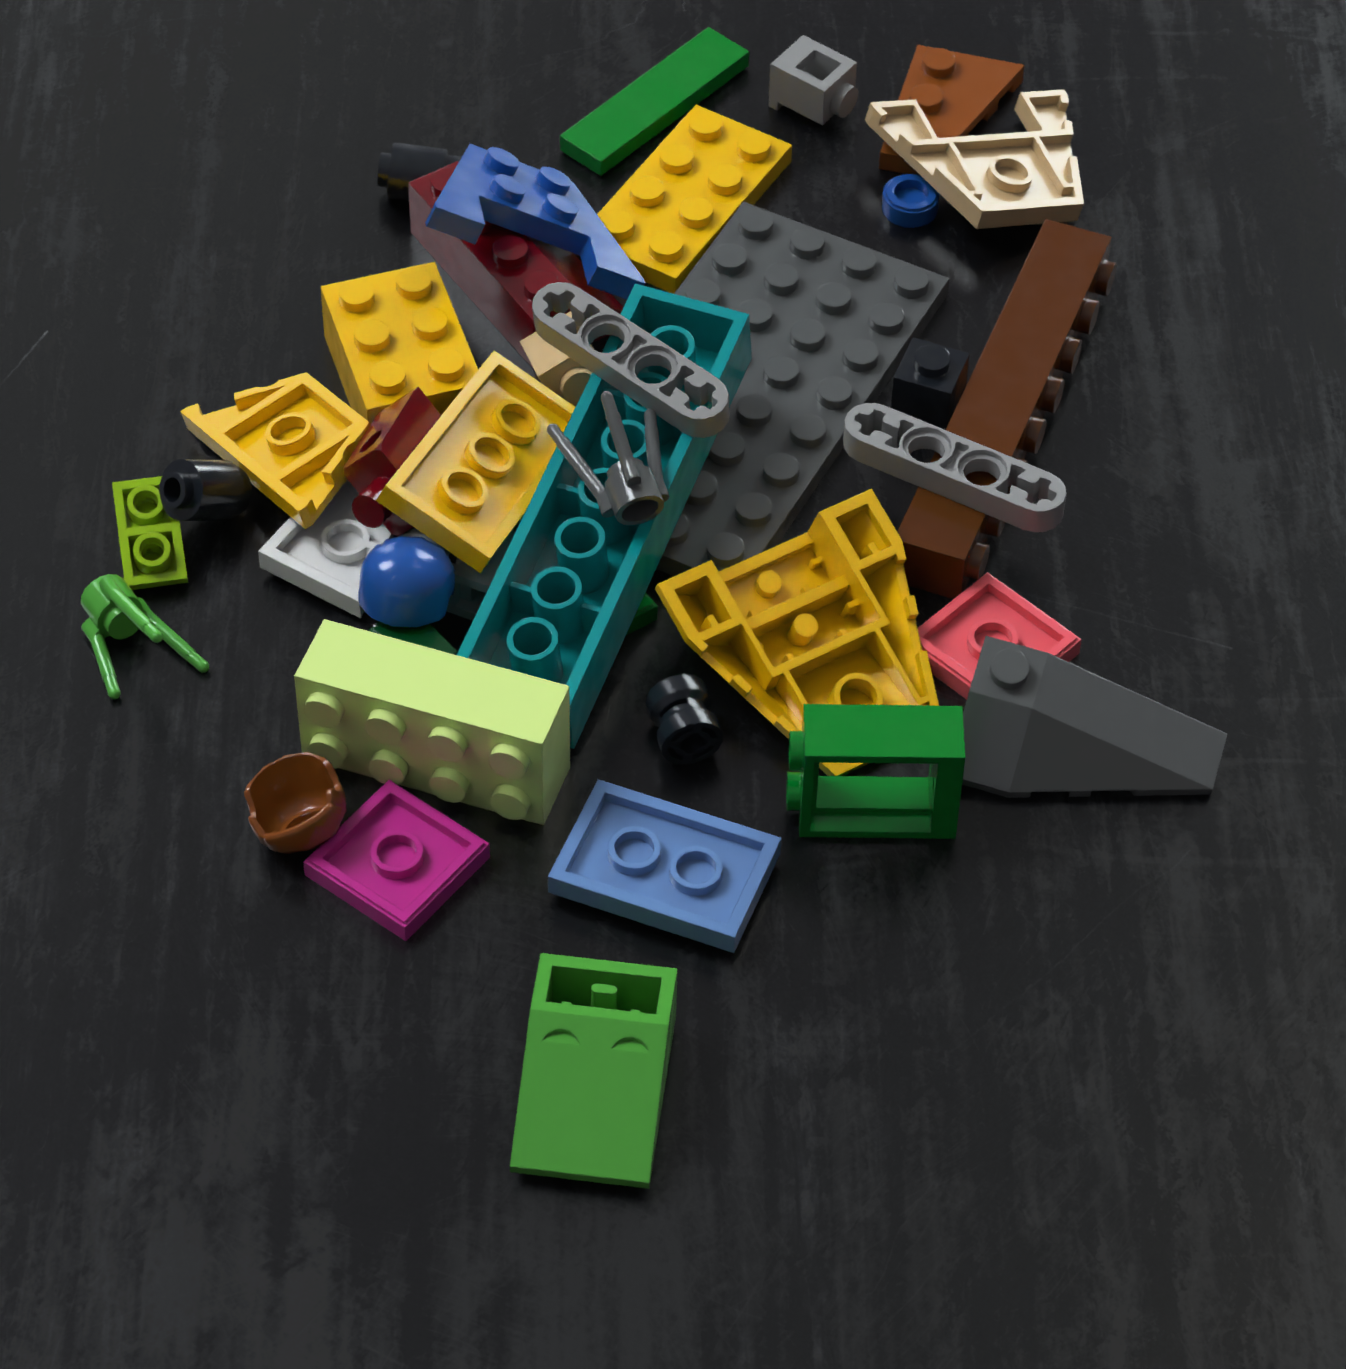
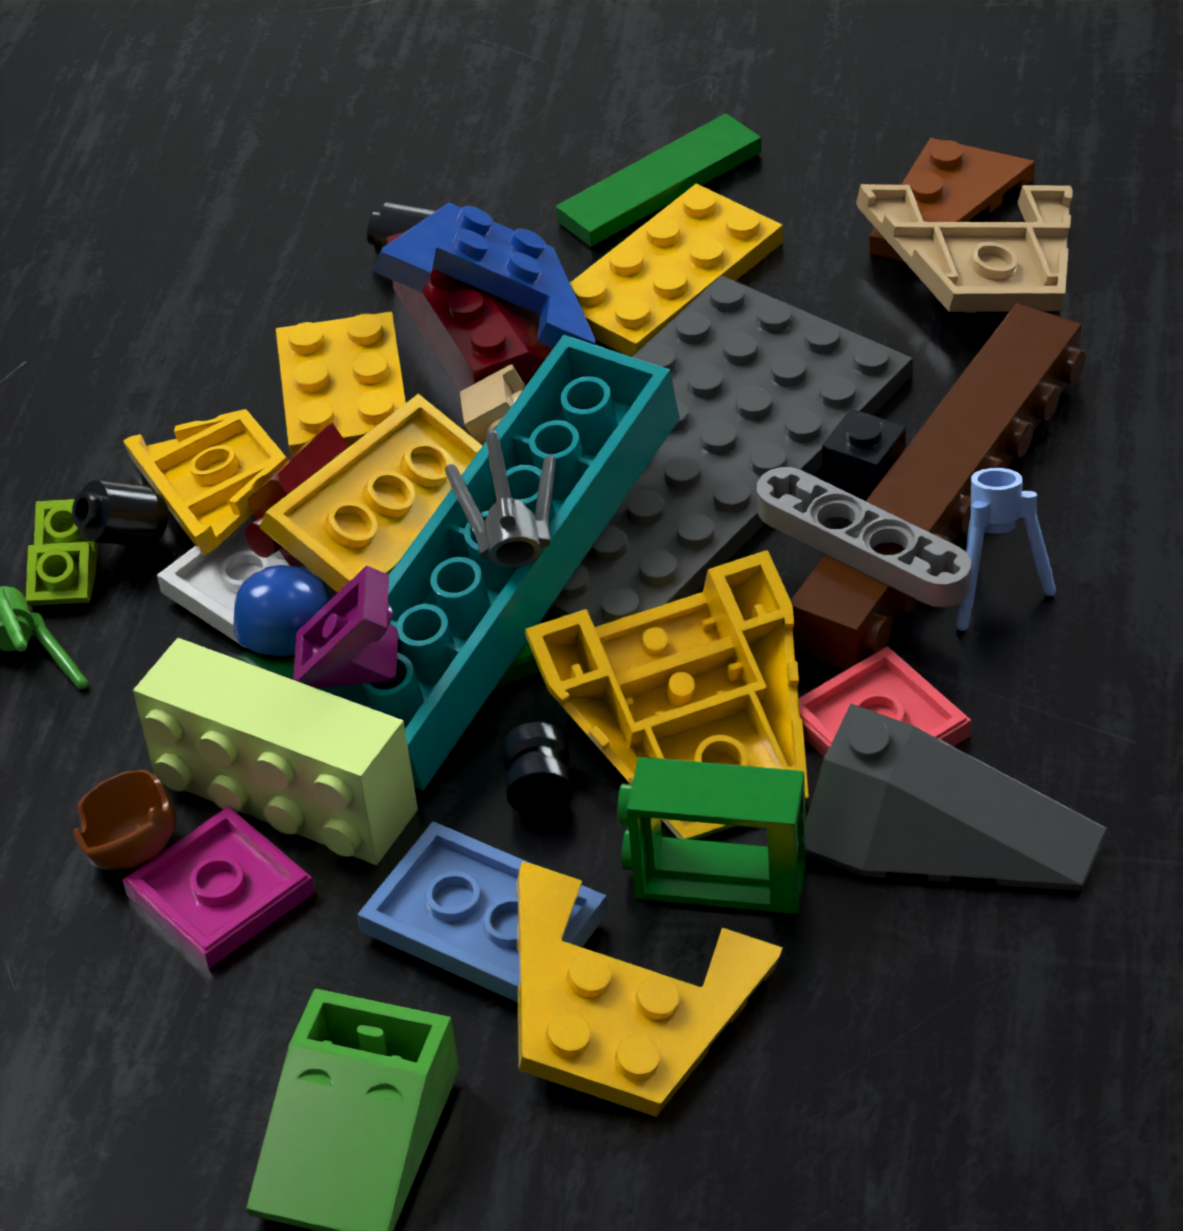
camera: 15 degrees right, 5 degrees down
(493, 605) = (349, 636): none -> magenta slope
(636, 353) = (544, 401): light grey beam -> none
(810, 957) = (612, 1022): none -> yellow wing
(813, 81) = (815, 166): light grey brick -> none
(910, 201) = (891, 284): blue tile -> none
(1073, 431) = (995, 507): none -> light blue plant

